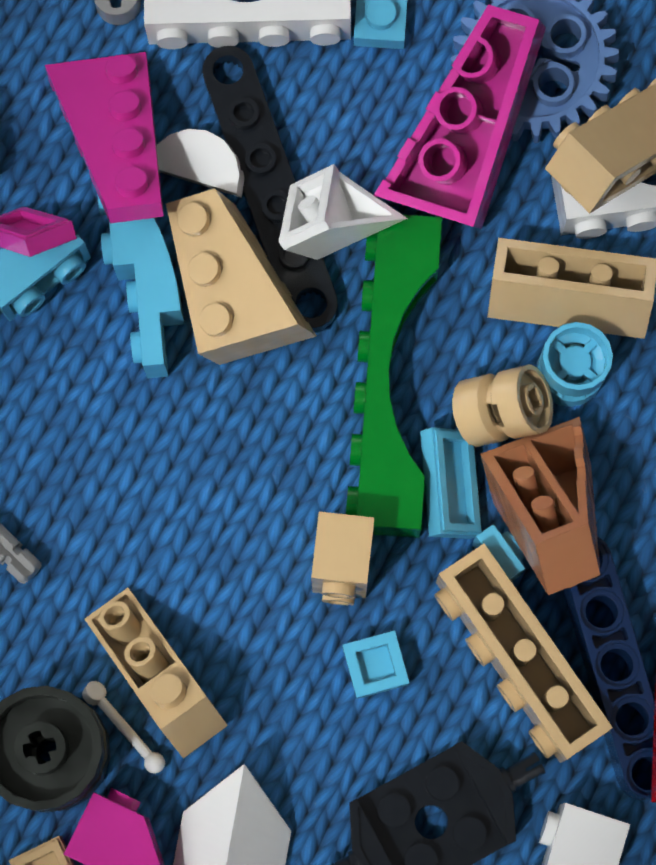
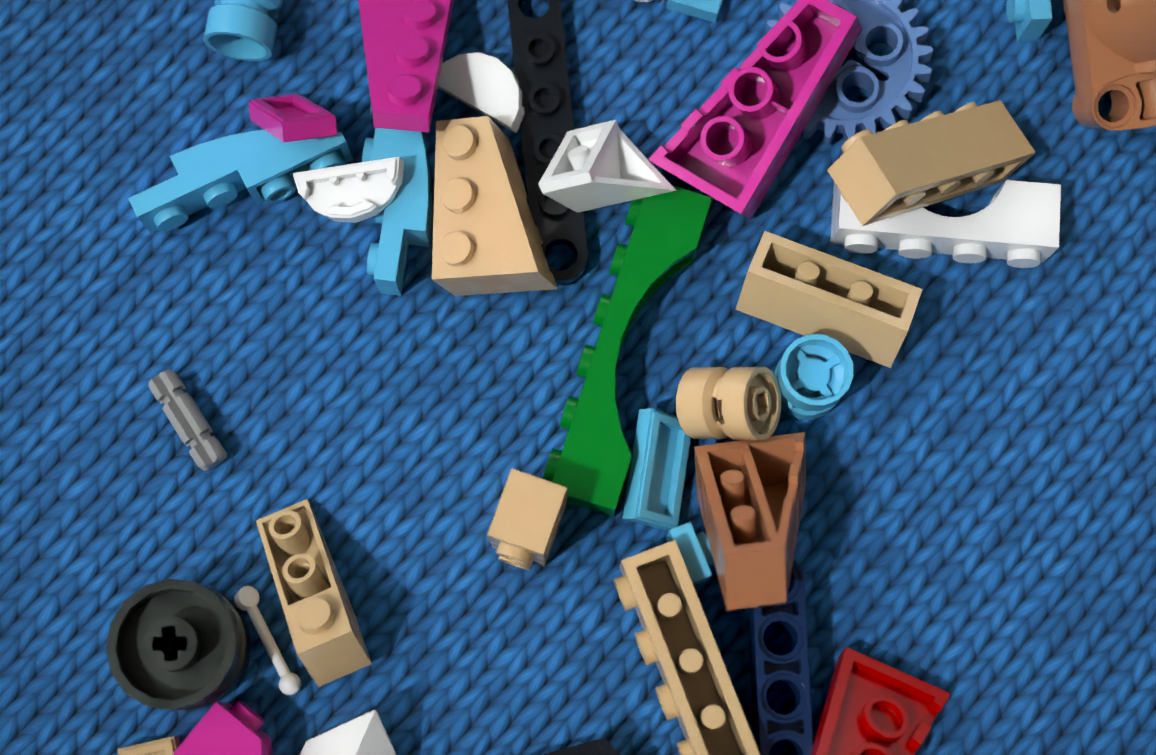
camera: 10 degrees right, 0 degrees up
(102, 287) = (351, 190): none -> white tile
(375, 664) = (537, 637): medium azure plate -> none

